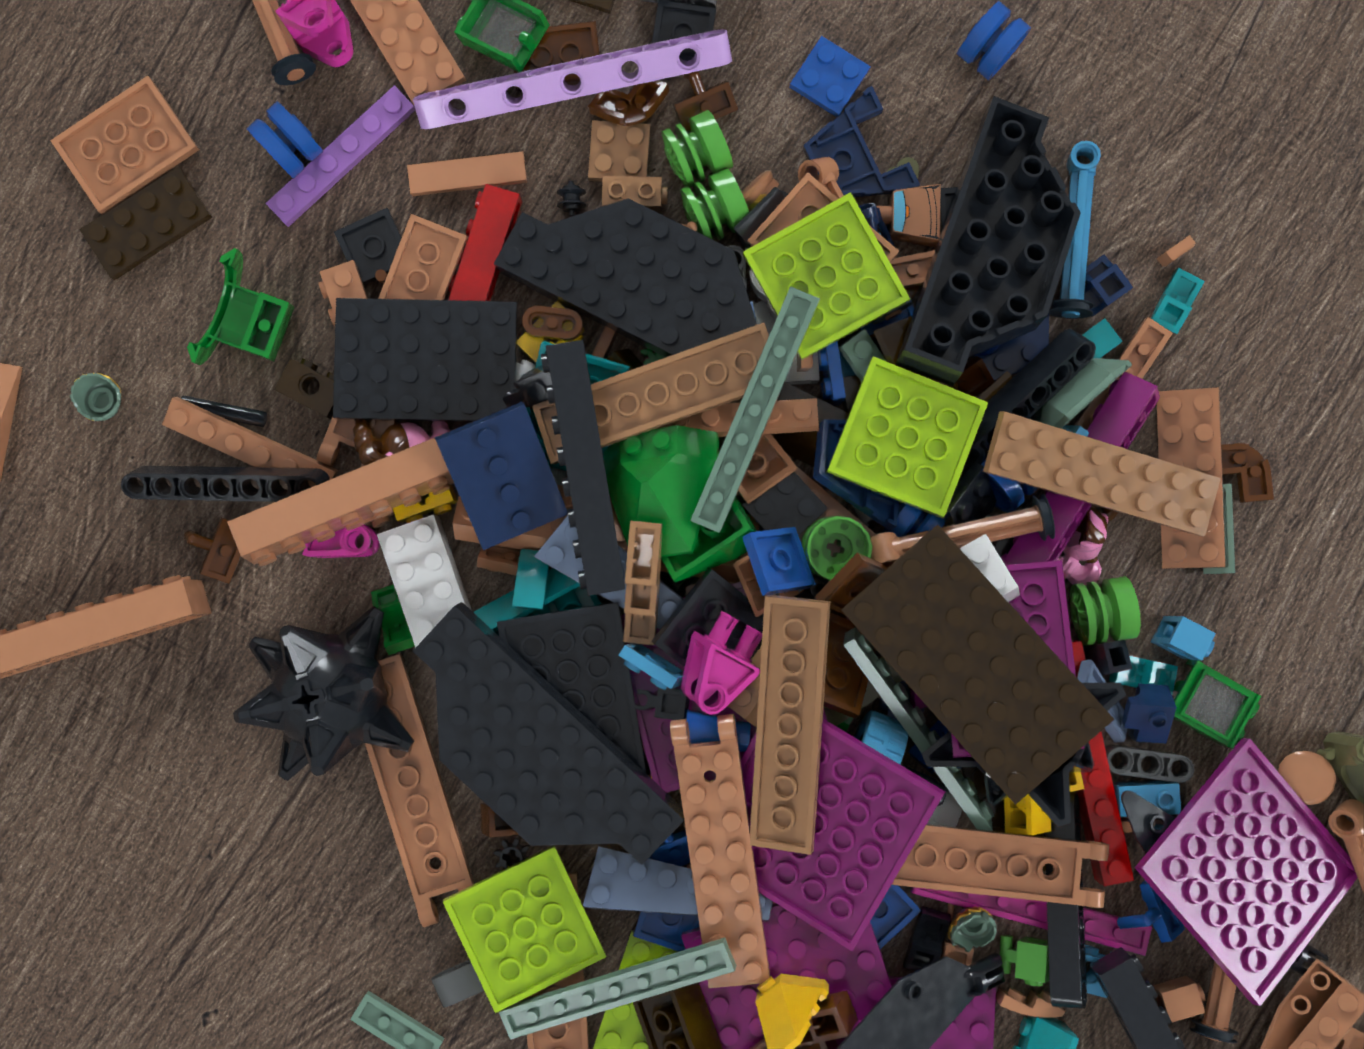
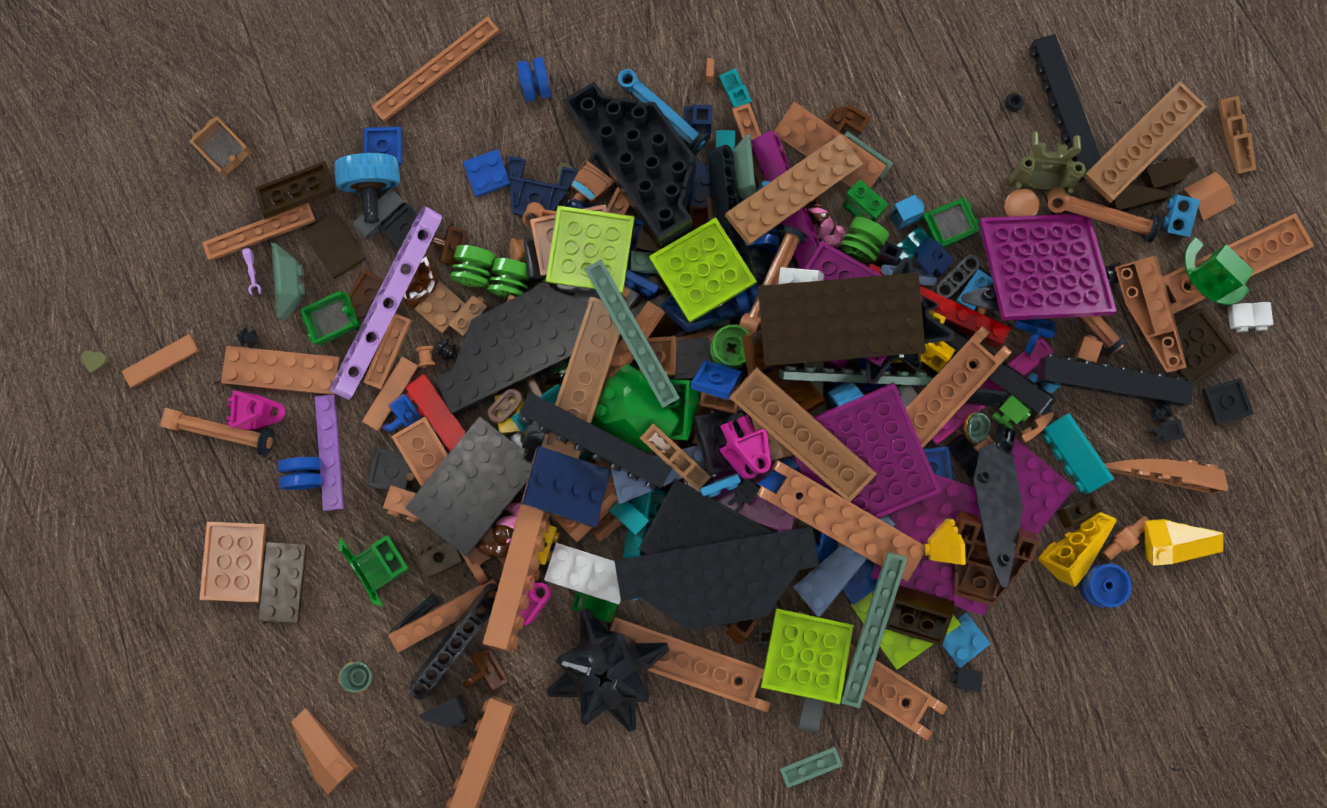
camera: 55 degrees left, 5 degrees down
(132, 541) = (448, 713): none -> black slope
(455, 206) = (405, 414): none -> blue plate
(515, 129) = (387, 352): none -> nougat plate
(543, 180) = (425, 357): none -> nougat bush
(1022, 918) = (987, 397): none -> black slope
(1154, 575) = (864, 202): none -> green window

